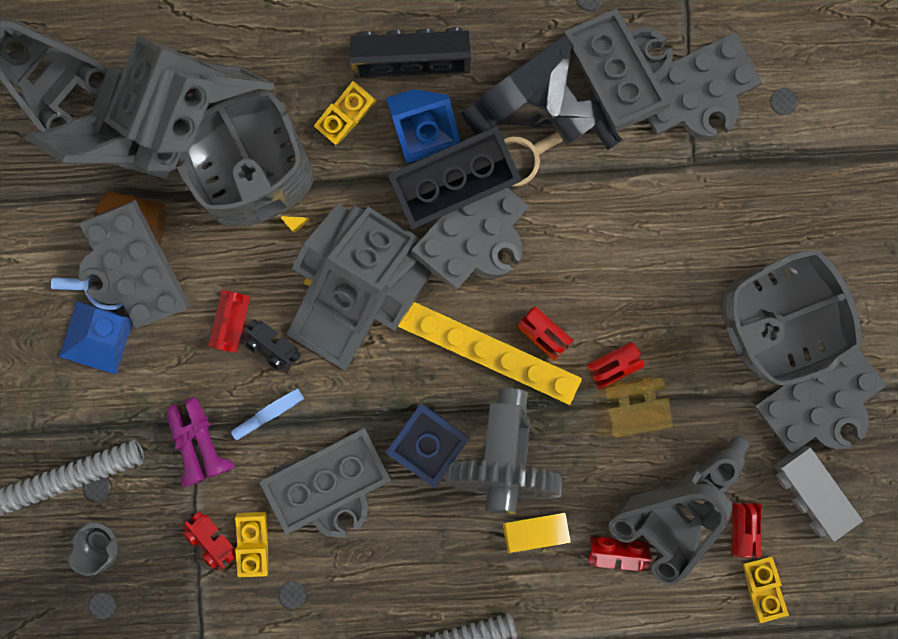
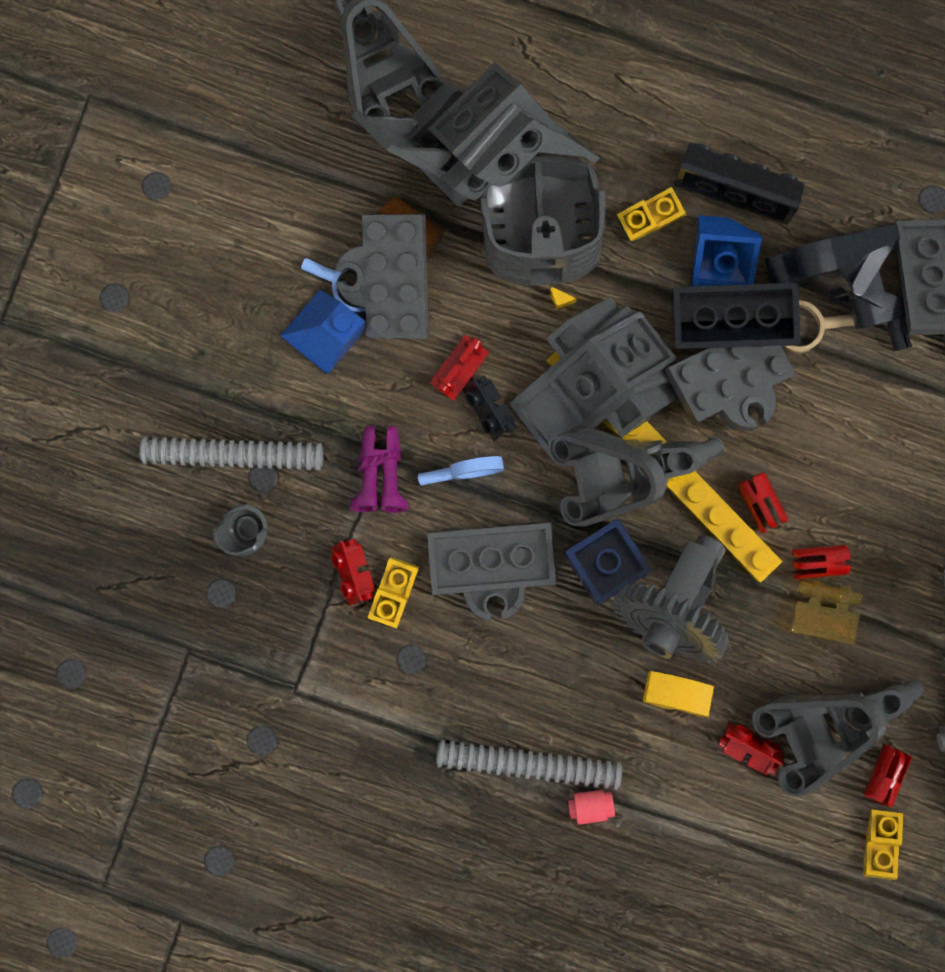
camera: 20 degrees right, 5 degrees down
(386, 359) = (600, 473): none -> dark grey connector

